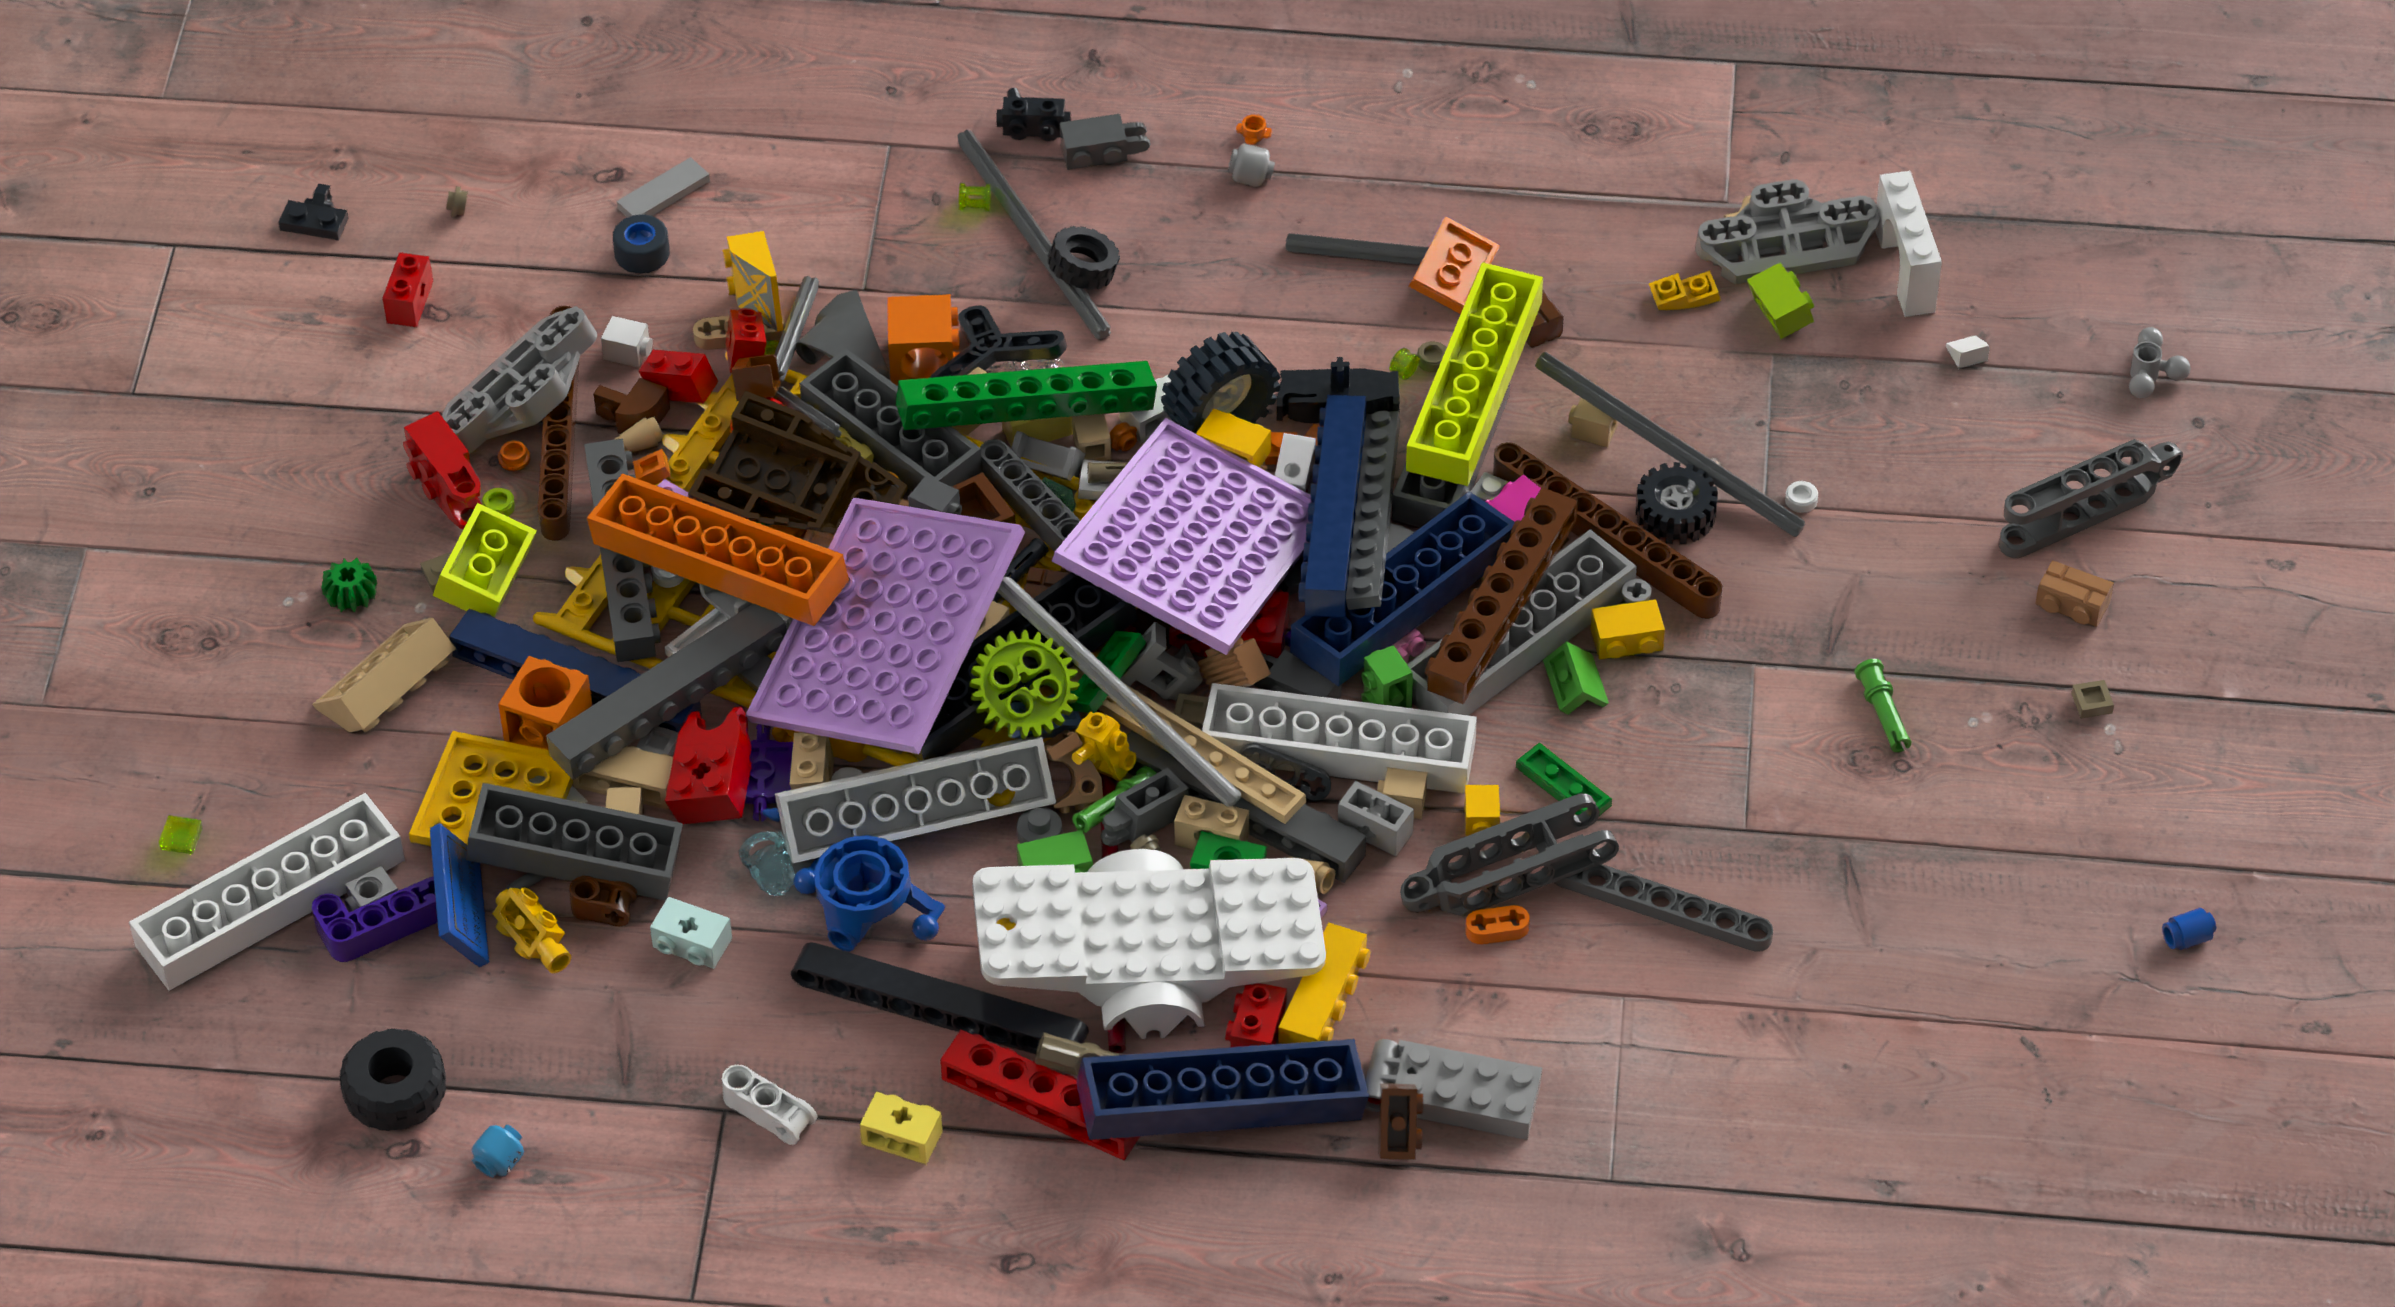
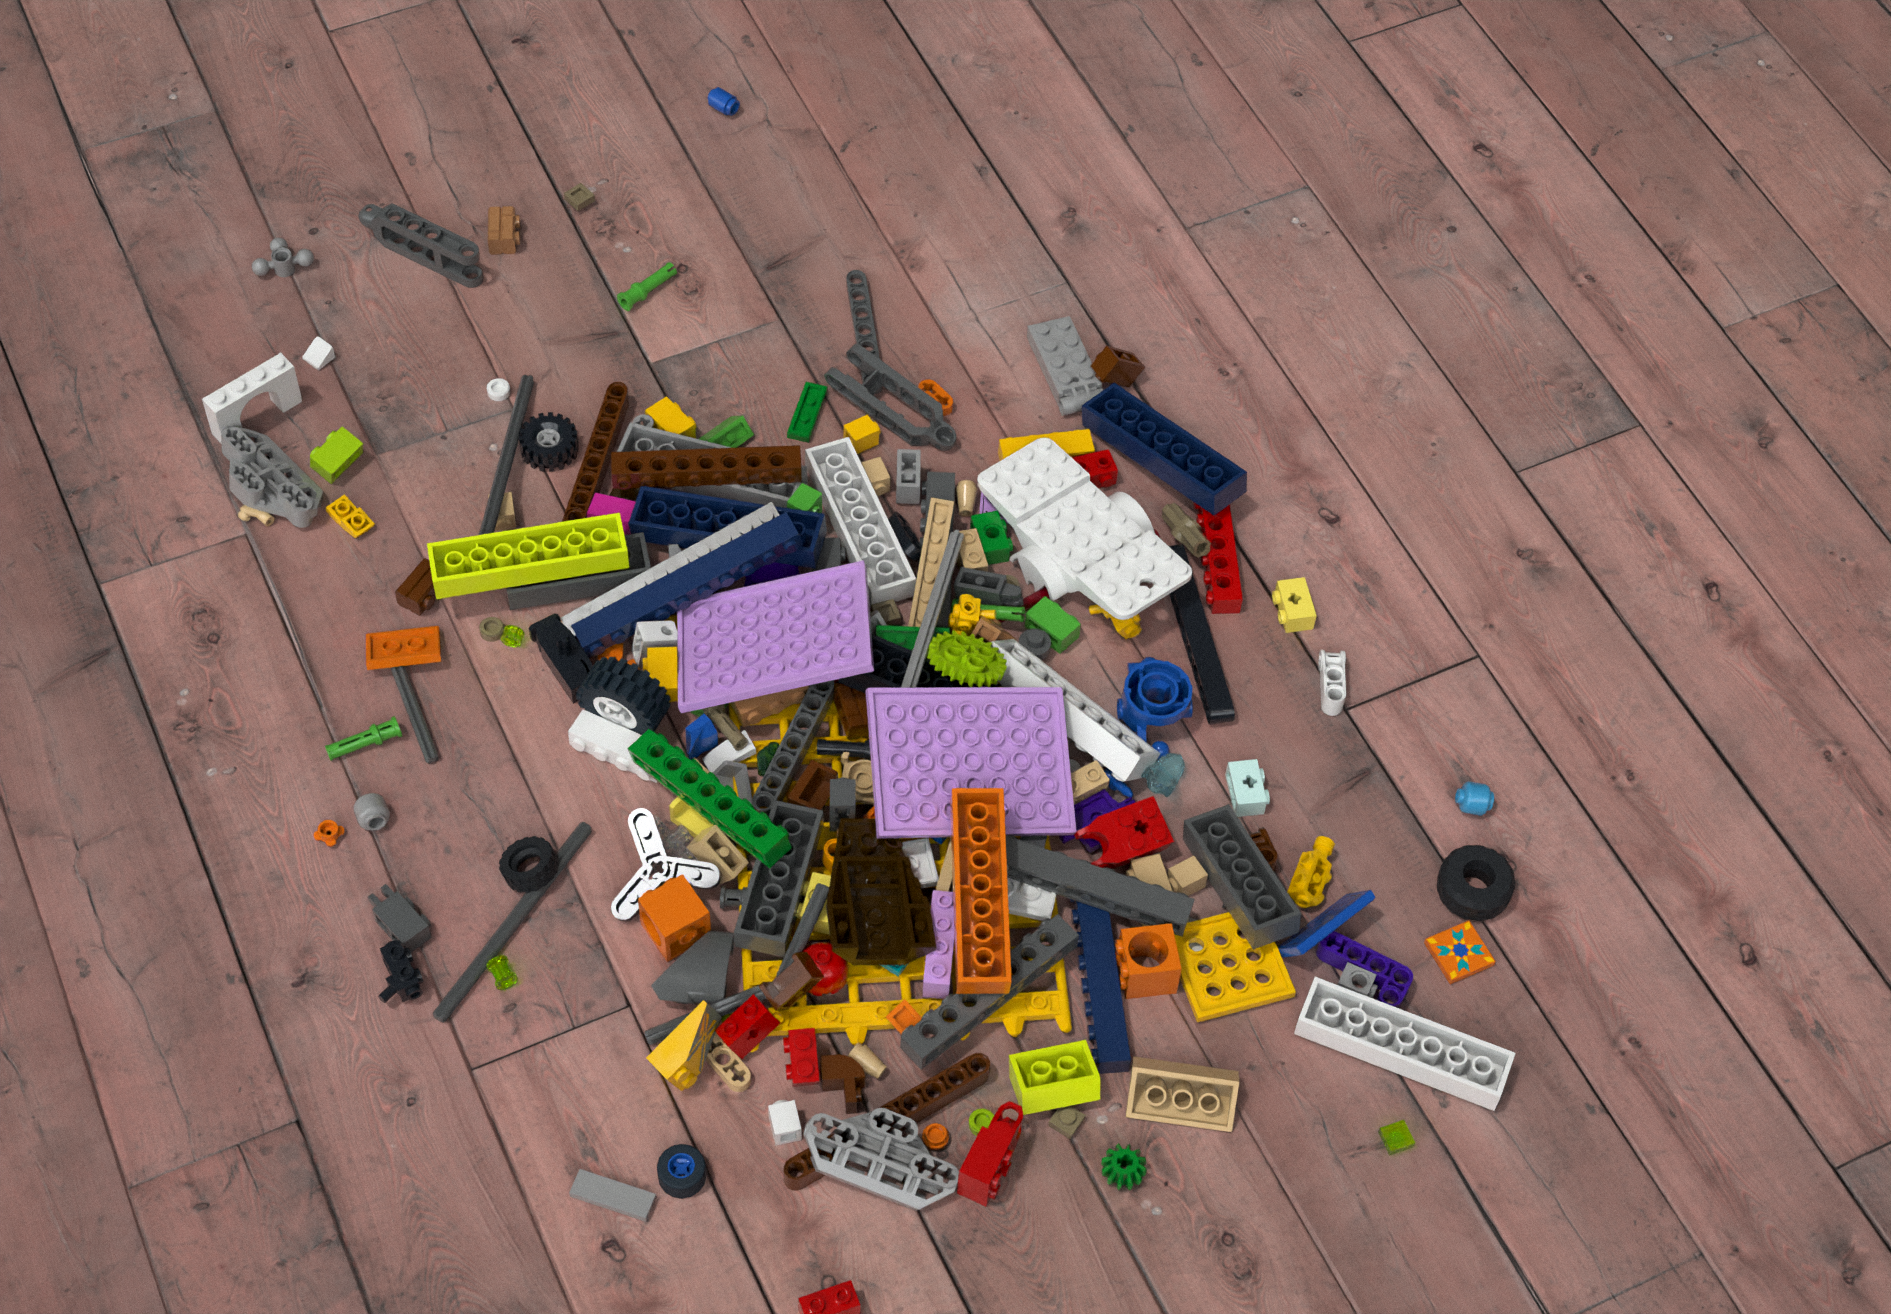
camera: 125 degrees left, 5 degrees up
(330, 1025) = (1459, 952): none -> tile
(1126, 439) = (700, 736): none -> blue slope
(1351, 203) = (375, 734): none -> bright green pin

